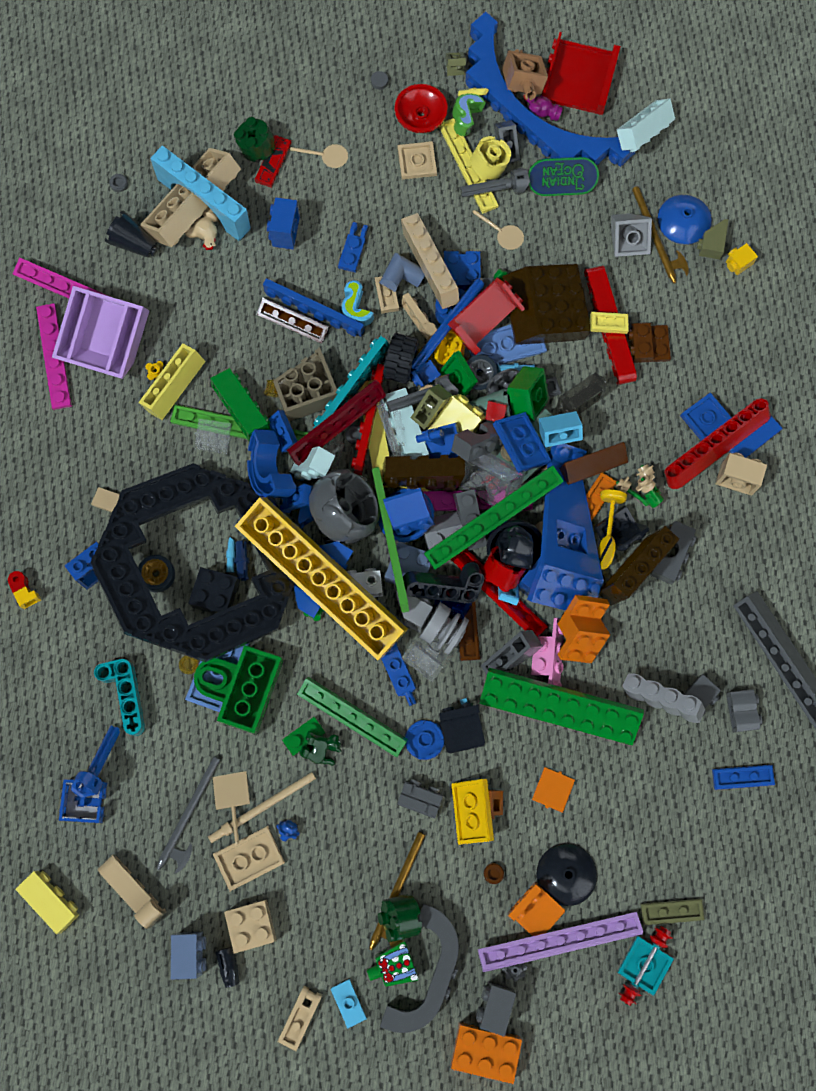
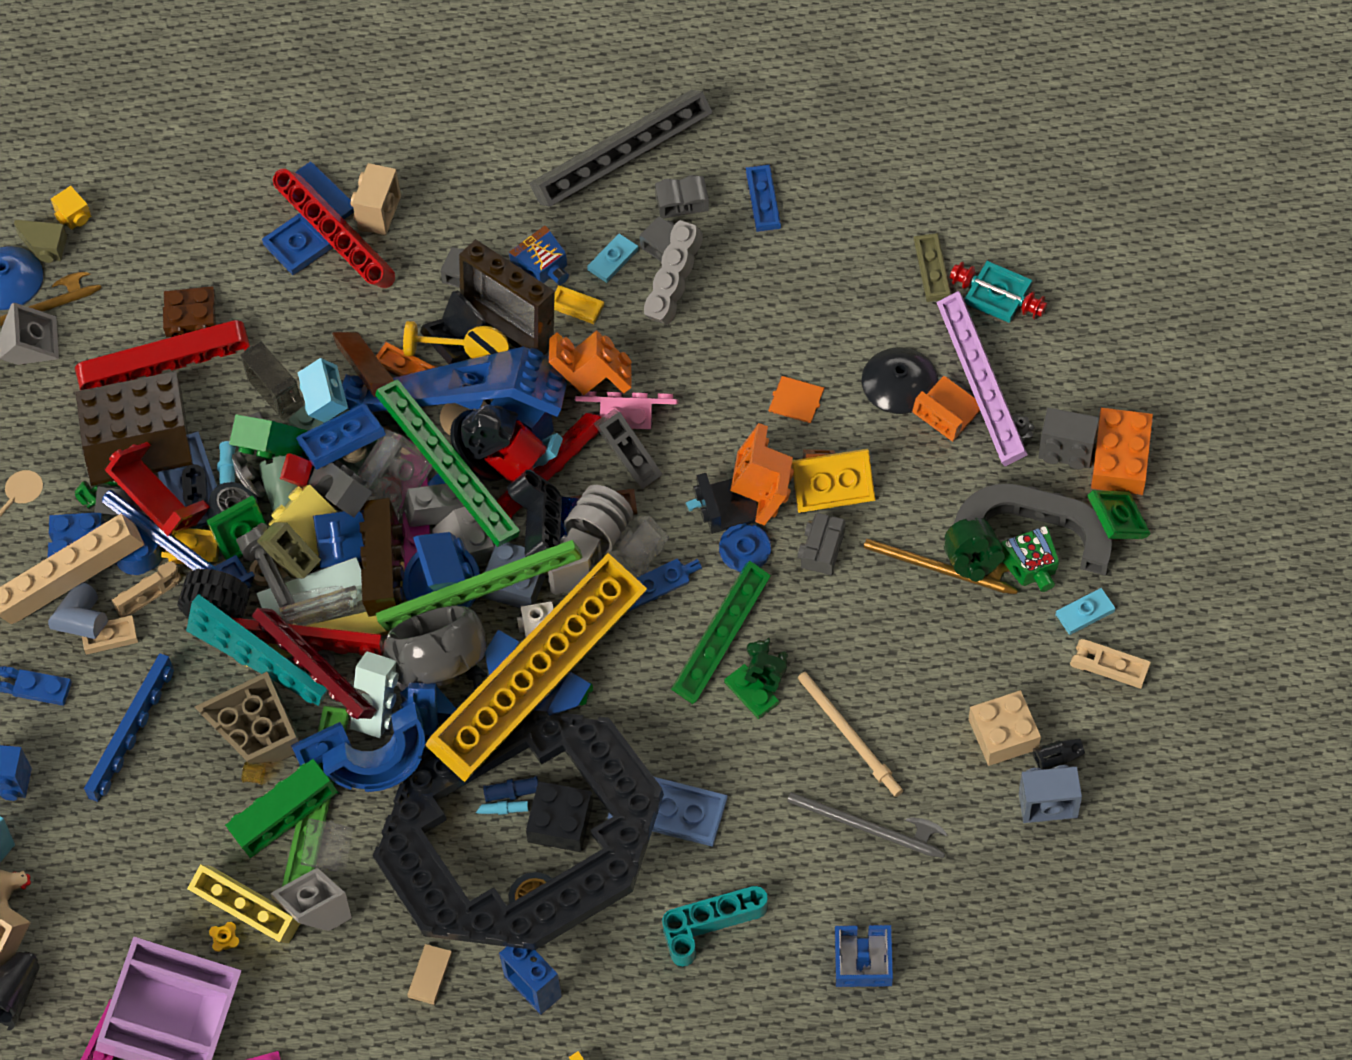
camera: 90 degrees left, 15 degrees down
(48, 901) = (1002, 985): light yellow brick -> none
(90, 781) = (837, 934): blue piece -> none
(131, 891) = (975, 881): tan beam -> none
(167, 424) = (314, 901): none -> light grey slope
(188, 665) = (663, 845): clear yellow plate -> none
(231, 791) = (834, 773): tan piece -> none
(244, 687) = (693, 763): green brick -> none
(249, 858) = (918, 744): tan tile -> none
(287, 830) = (877, 696): blue plant -> none
(294, 318) = (143, 755): slope -> none
(351, 303) = (125, 677): medium azure animal -> none
(426, 1042) = (1118, 514): none -> green tile
(476, 756) = (762, 474): none -> orange bracket
(493, 873) = (907, 459): reddish brown tile -> none
(496, 347) = (189, 488): none -> black beam
(561, 706) = (690, 390): green plate -> none
(609, 322) = (165, 349): light yellow plate -> none
(645, 484) = (393, 299): plant -> none
(646, 624) = (577, 304): none -> yellow tile
(687, 598) = (541, 257): none -> blue torso
(688, 654) = (612, 258): none -> medium azure plate

